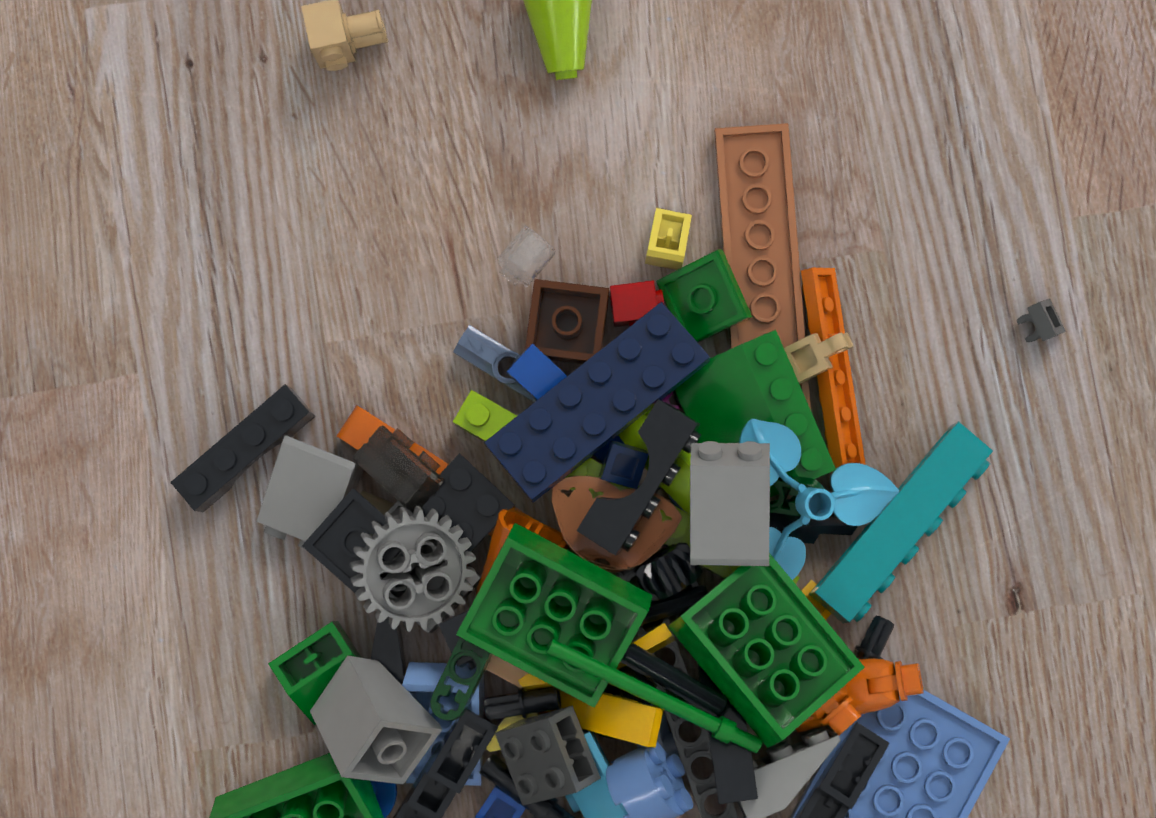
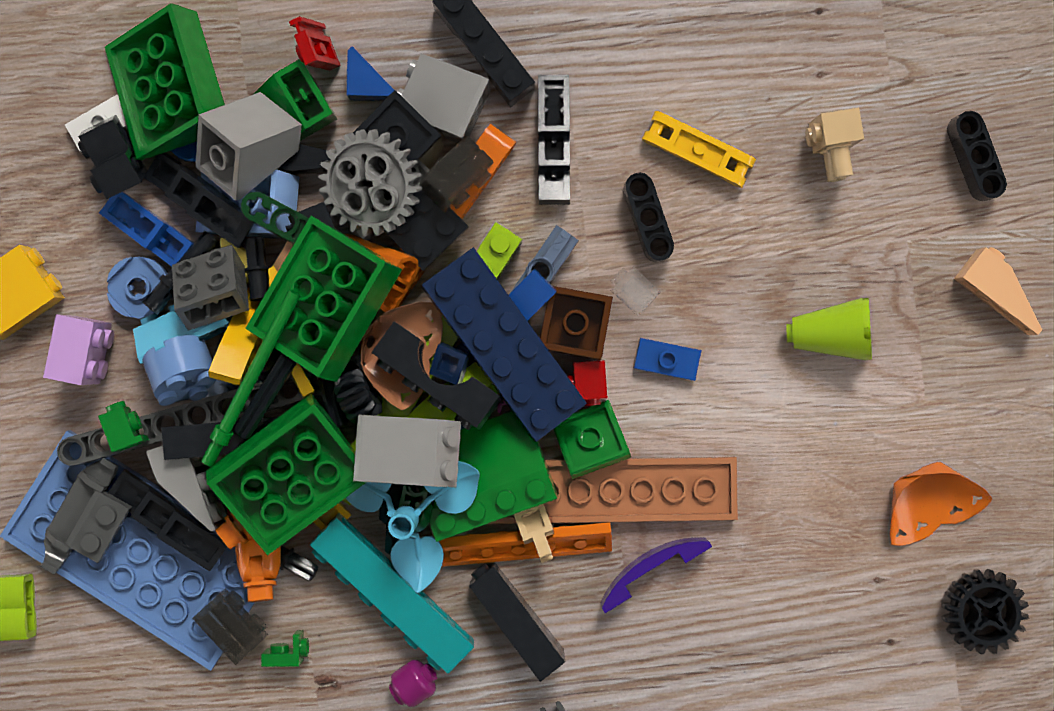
camera: 85 degrees right, 5 degrees up
(253, 649) = (312, 45): none -> red plate
(291, 587) = (363, 80): none -> blue slope
(351, 361) = (553, 139): none -> slope
(355, 192) = (699, 149): none -> yellow plate
(420, 245) = (648, 202): none -> black beam
(604, 215) = (667, 359): none -> blue plate
(668, 239) = (644, 412): light yellow slope -> none
(881, 258) = (687, 548): none -> dark purple slope
(923, 372) = (517, 620): none -> black slope
(953, 713) = (231, 625): none -> clear smoke brick
(985, 652) = (282, 656): none -> green bracket
(1007, 493) = (413, 683): none -> magenta head

